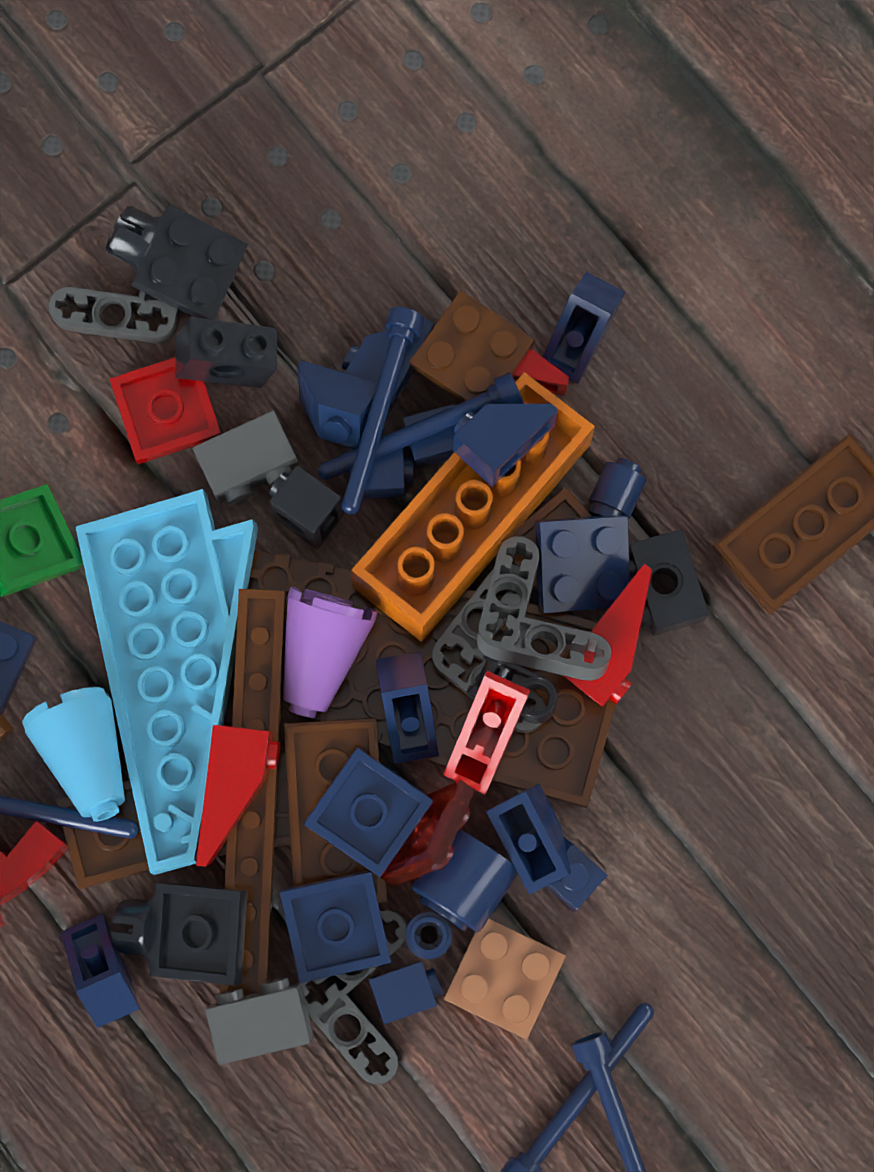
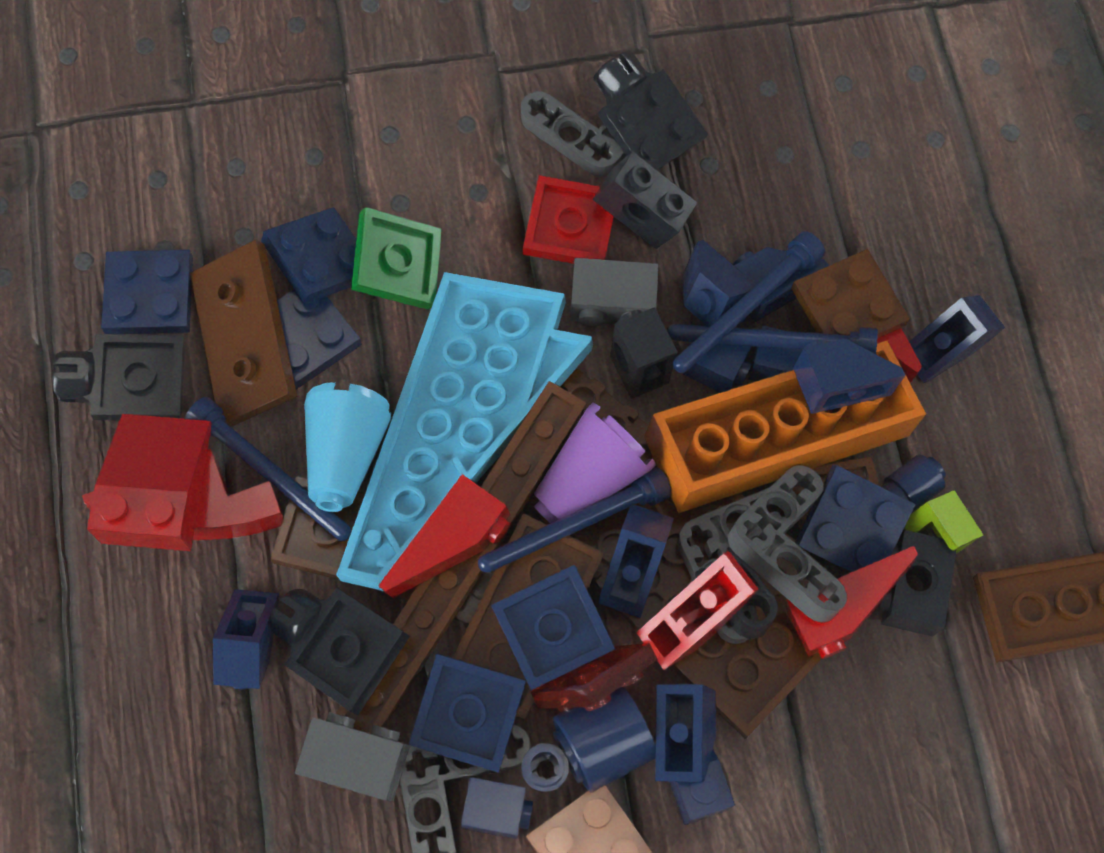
camera: 25 degrees right, 10 degrees down
(384, 635) = (648, 489): none -> dark blue piece
(664, 511) = (947, 519): none -> lime panel

